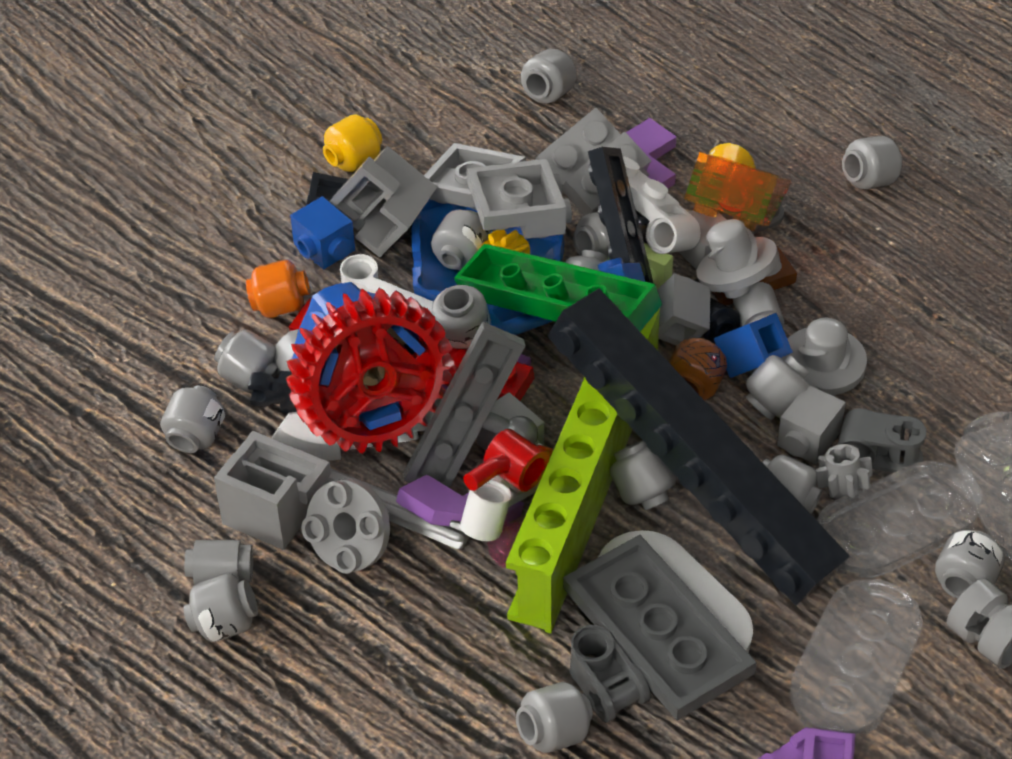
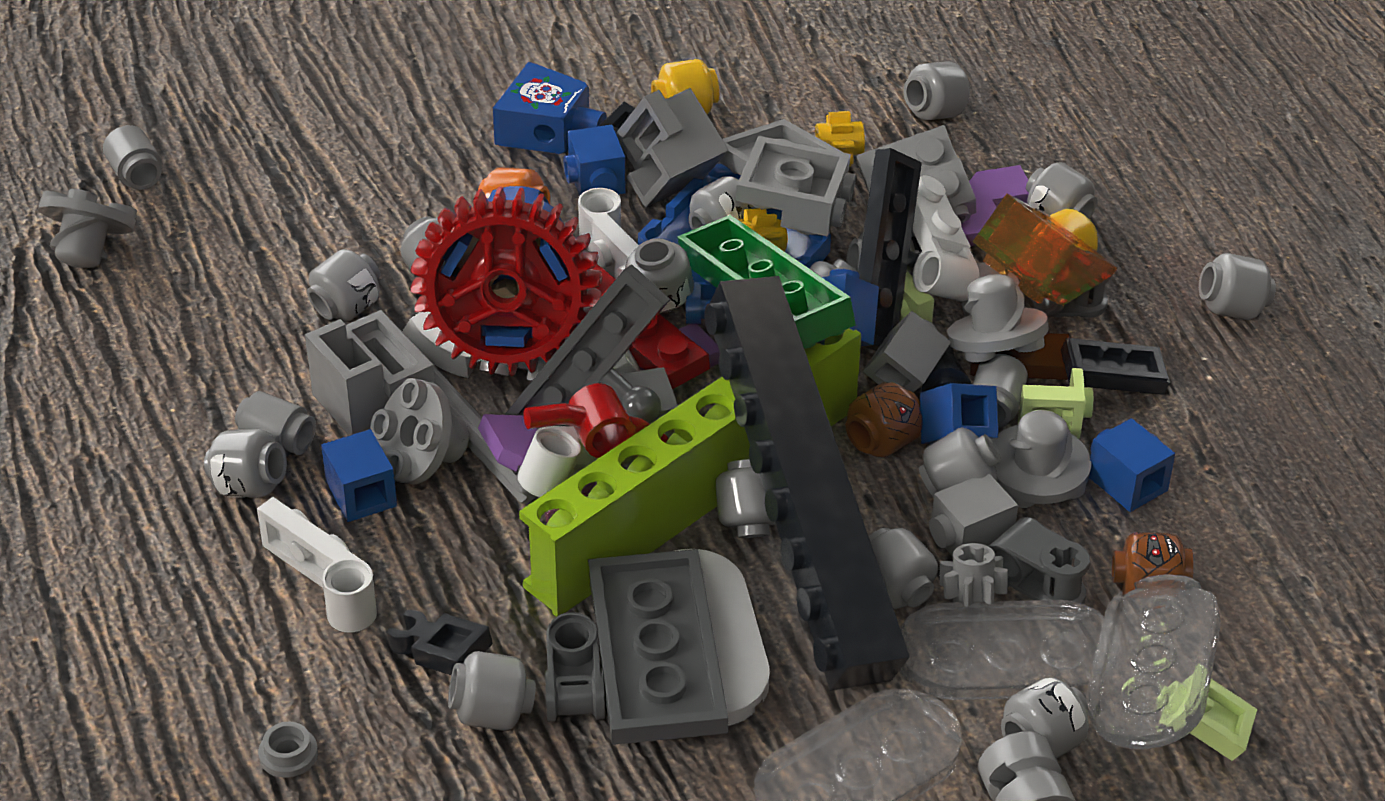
camera: 25 degrees right, 5 degrees down
(251, 202) = (542, 109): none -> blue torso
(321, 579) = (359, 475): none -> blue brick
(346, 665) = (324, 560): none -> white plate
(488, 695) = (439, 643): none -> black plate
(504, 138) = (842, 133): none -> yellow gear
(700, 131) = (1061, 188): none -> light grey head
(818, 303) = (1069, 402): none -> yellowish green bracket
(827, 260) = (1116, 365): none -> black plate
(891, 335) = (1131, 464): none -> blue brick
(955, 408) = (1150, 556): none -> dark orange head

